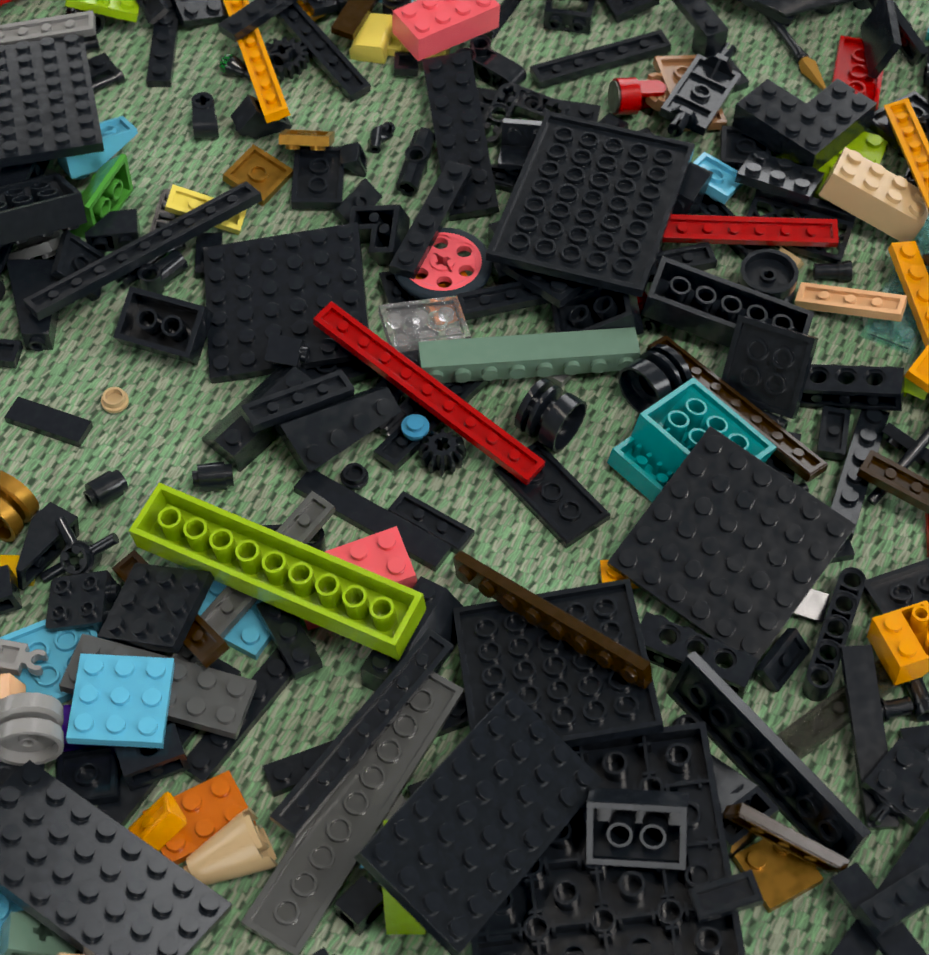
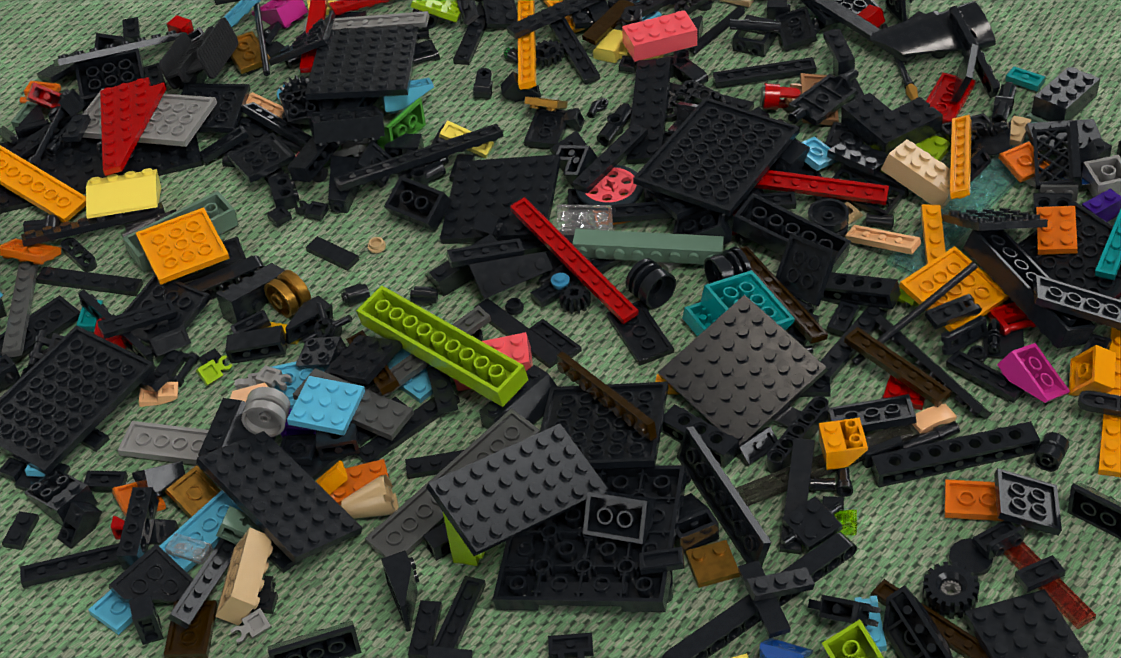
camera: 20 degrees right, 10 degrees down
(260, 171) = (510, 121): pearl gold plate -> none
(361, 733) = (467, 443): black plate -> none
(785, 838) = (714, 537): dark brown tile -> none

